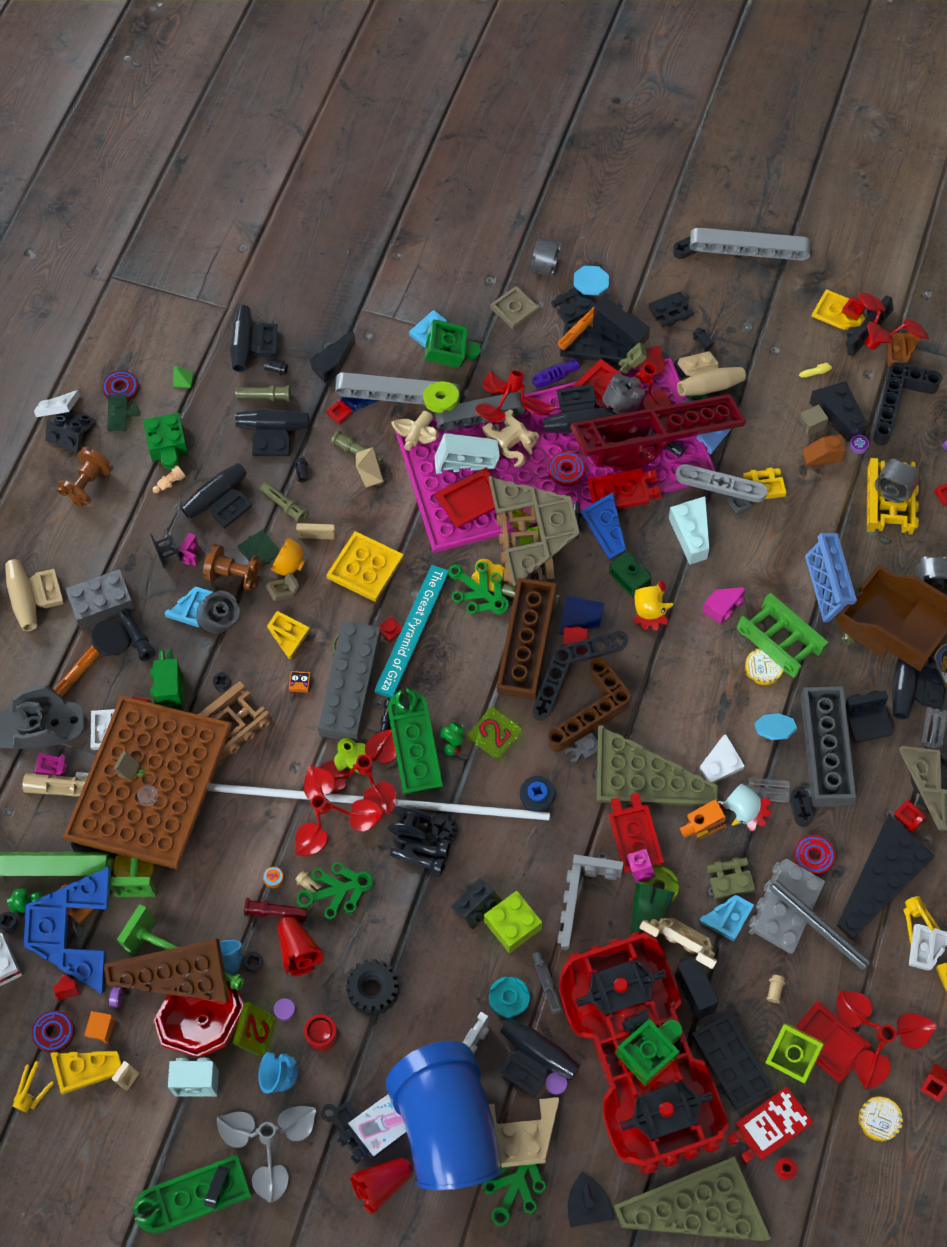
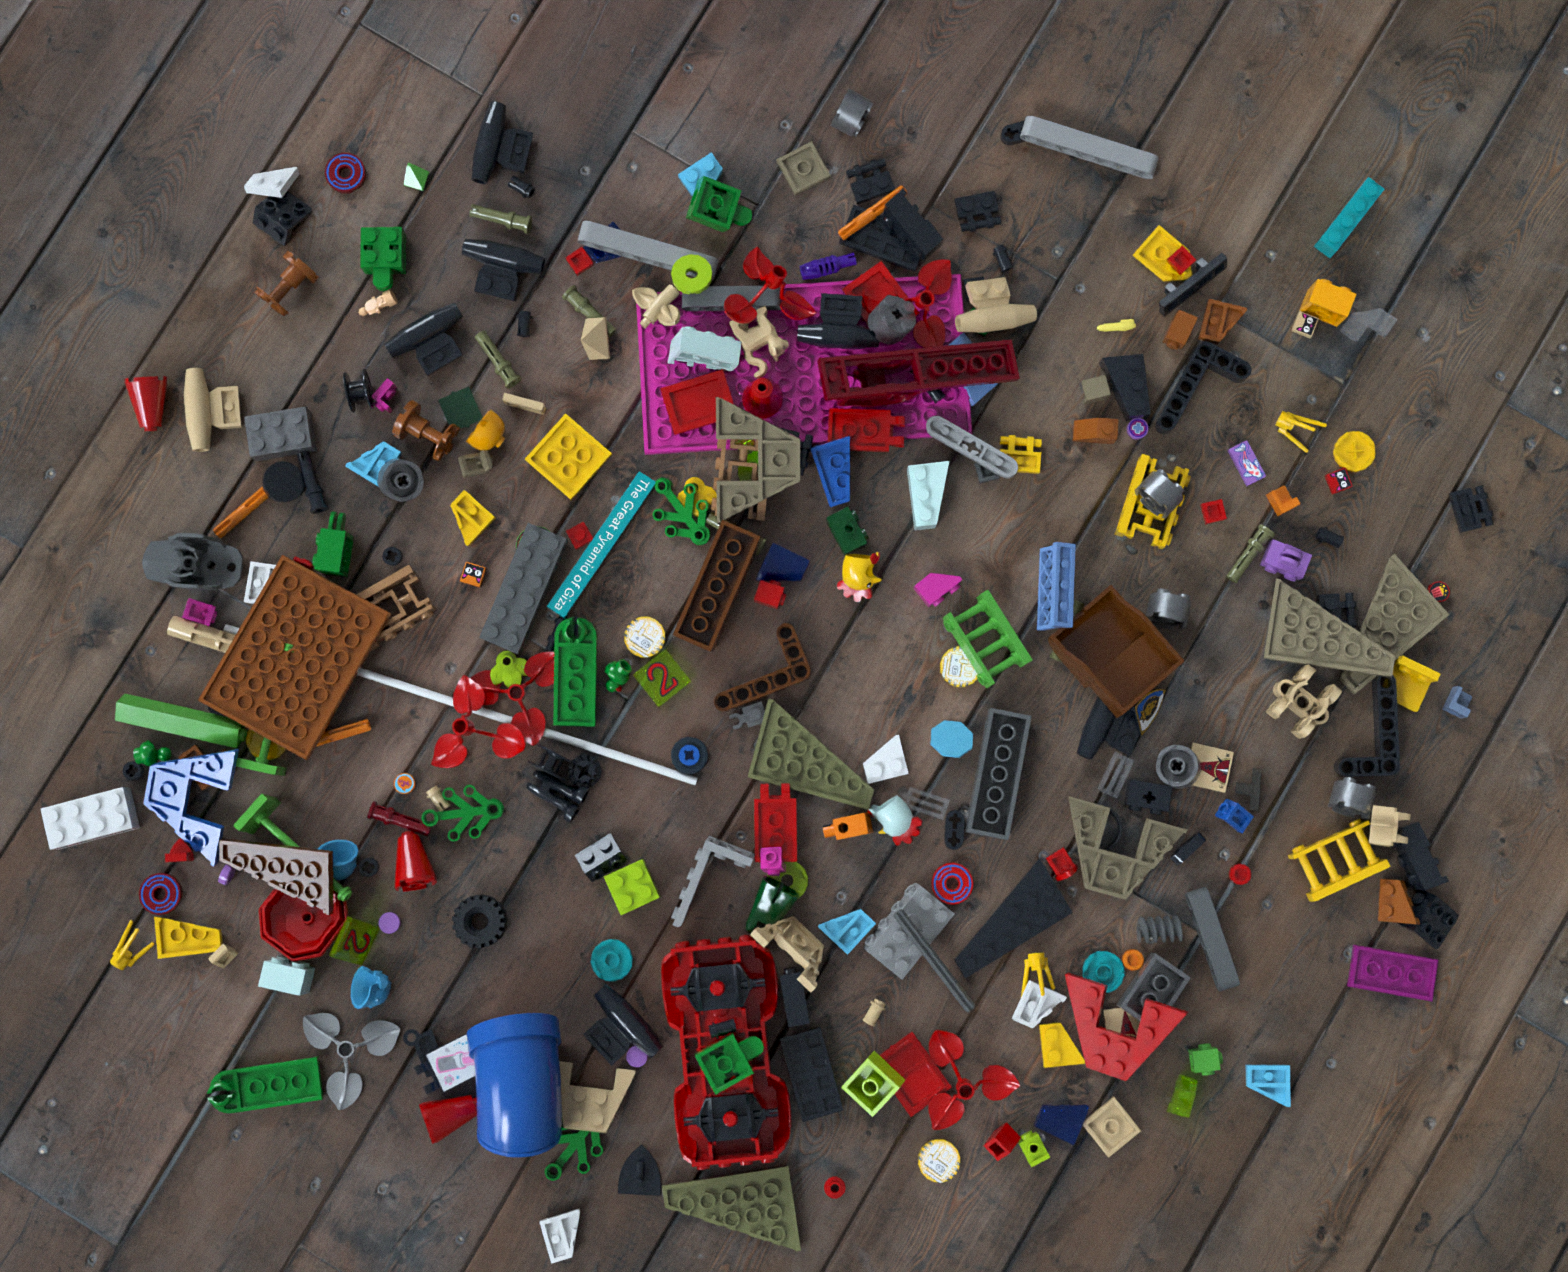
camera: 10 degrees right, 20 degrees up
(100, 1026) = (206, 902): orange panel -> none
(118, 412) = (337, 207): clear green plate -> none
(126, 766) = (273, 640): dark tan slope -> none
(147, 795) = (290, 676): clear tile -> none
(201, 845) = (345, 732): none -> orange axle
(217, 1186) = (290, 1086): black beam -> none
(321, 1033) = (419, 956): red piece -> none
(331, 360) = (583, 193): black slope -> none
(470, 701) = (644, 637): none -> tile
(478, 1032) = (560, 1003): white wing -> none
(528, 473) = (762, 398): none -> red cone
(547, 983) = (652, 956): dark grey piece -> none
(569, 459) = (798, 393): red tile -> none
(574, 658) = (760, 620): black beam -> none
(591, 280) = (897, 155): medium azure piece -> none
(634, 358) = (918, 272): olive plate -> none
(731, 884) = (861, 895): olive plate -> none
(770, 1126) = (831, 1143): red tile -> none
(868, 716) = (1051, 750): black bracket -> none
(870, 359) = (1179, 330): none -> dark orange slope
(877, 334) = (1193, 306): red plant -> none

